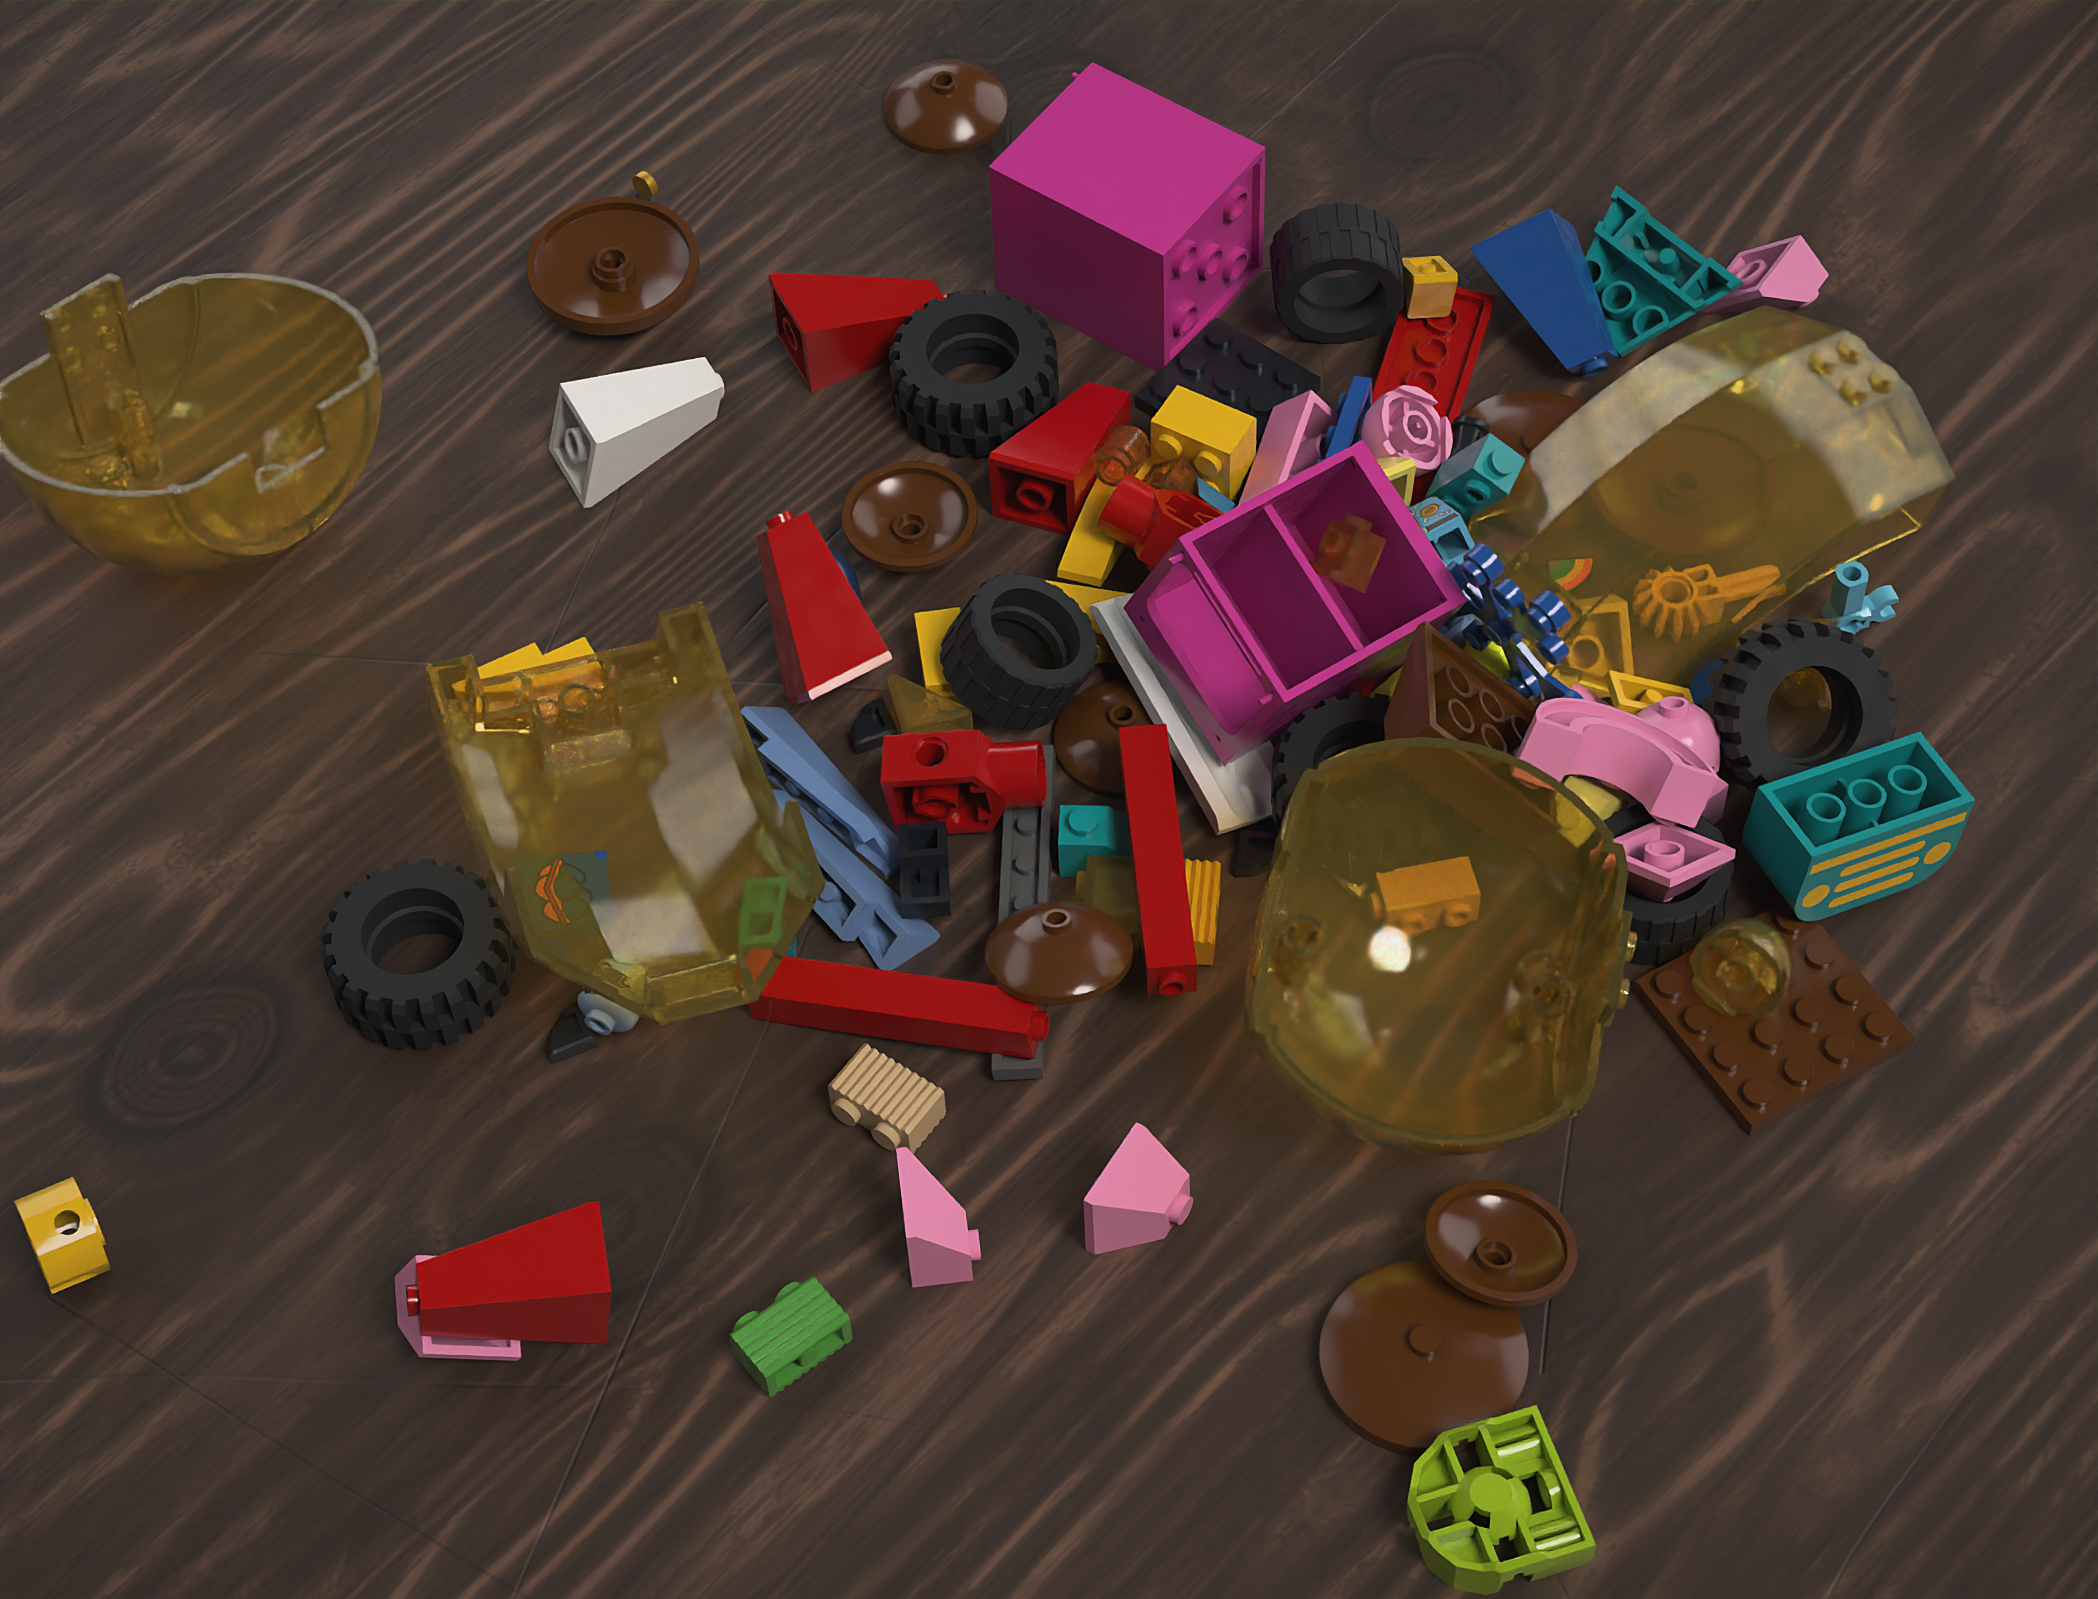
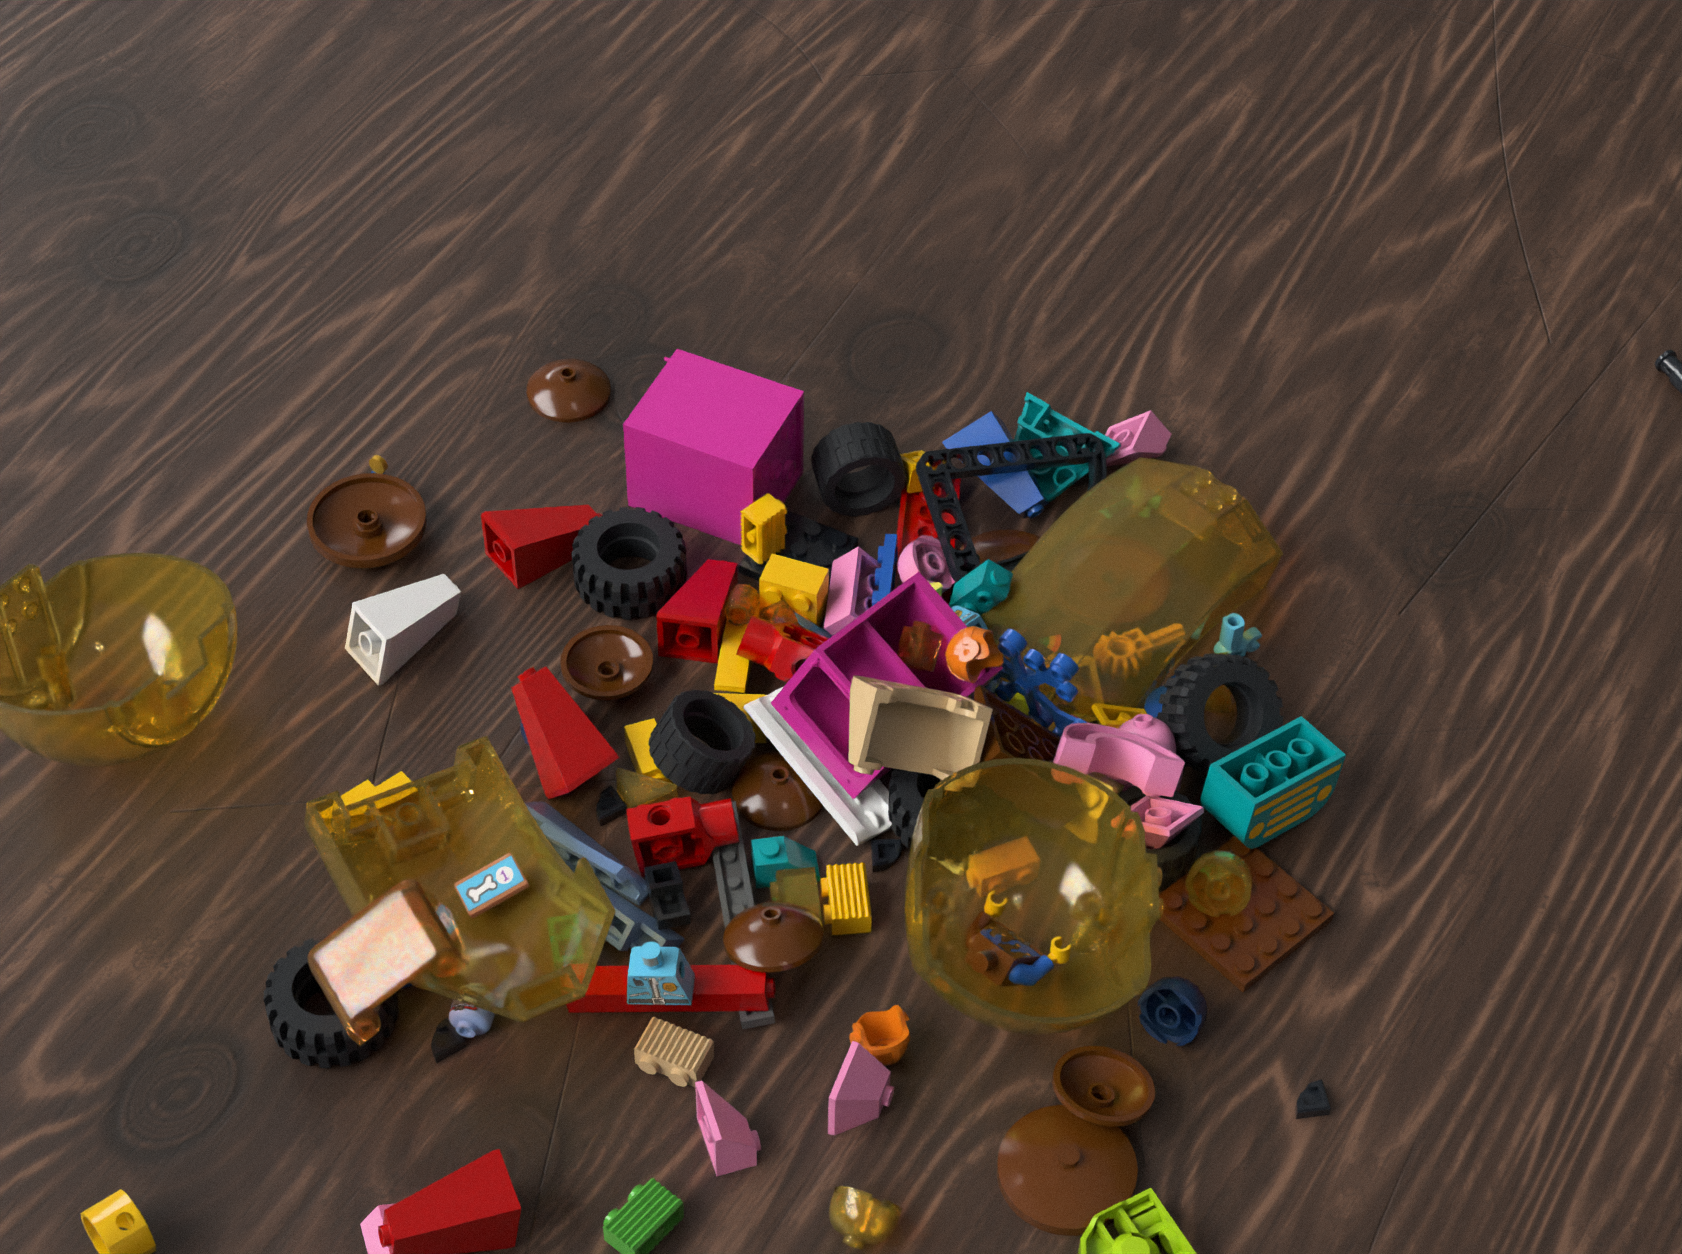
camera: 15 degrees left, 5 degrees down
(483, 892) = (383, 952): none -> clear orange windscreen
(675, 819) = (491, 885): none -> slope
(877, 986) = (659, 976): none -> medium azure torso
(1102, 1381) = (862, 1217): none -> clear yellow cylinder
(1157, 860) = (825, 867): red brick -> none
(1176, 345) = (763, 528): none -> yellow brick
(1190, 1120) = (883, 1034): none -> orange cap
(1304, 673) = (913, 728): none -> tan windscreen
(1389, 1028) = (1004, 954): none -> torso
(1419, 572) = (971, 652): none -> orange cap
(1545, 292) = (944, 472): none -> black beam
(1632, 1146) = (1173, 1010): none -> dark blue cylinder
(1817, 1314) = (1313, 1101): none -> black tile

